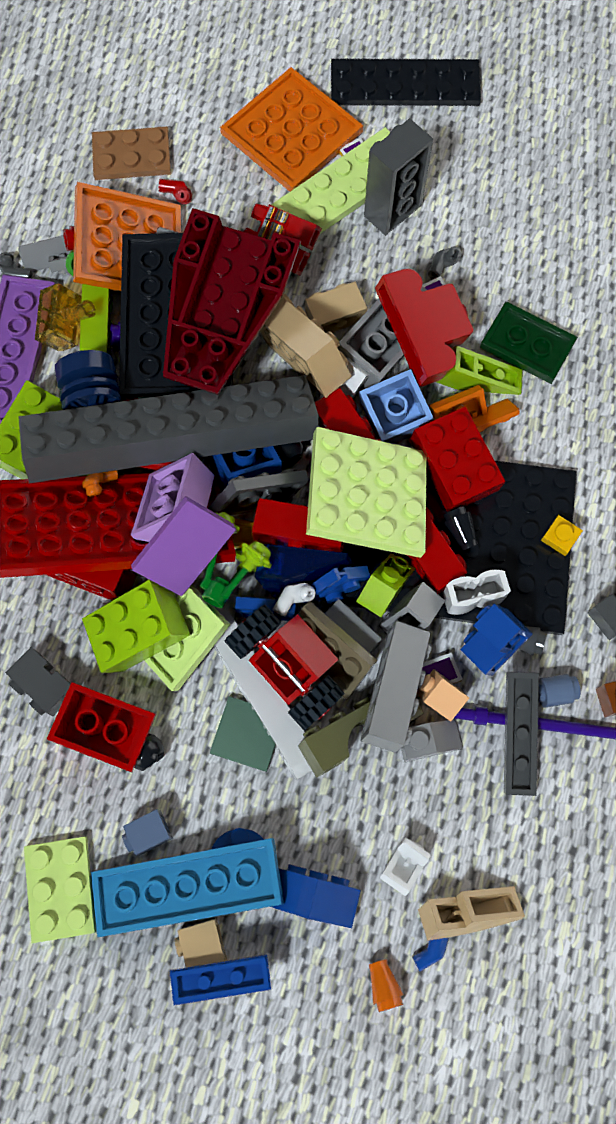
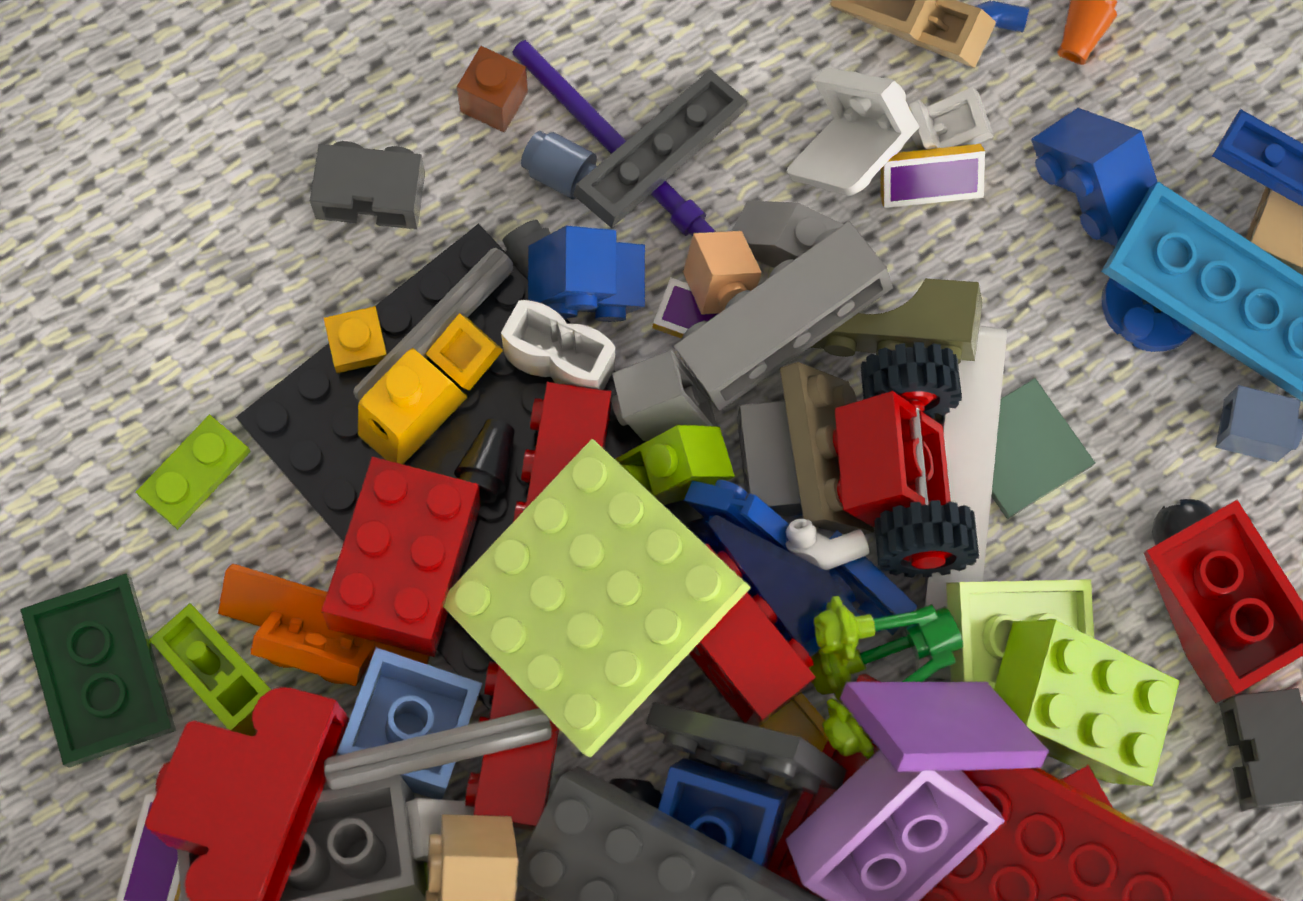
camera: 145 degrees left, 0 degrees up
(376, 393) = (437, 749): none -> light grey axle
(391, 831) = (933, 176): none -> tile
(439, 812) = (865, 133): none -> white bracket
(511, 517) = (408, 405): none -> yellow torso
(514, 563) = (464, 352): none -> yellow plate
(535, 566) = (460, 299): none -> light grey axle
(570, 440) = (193, 471): none -> lime plate

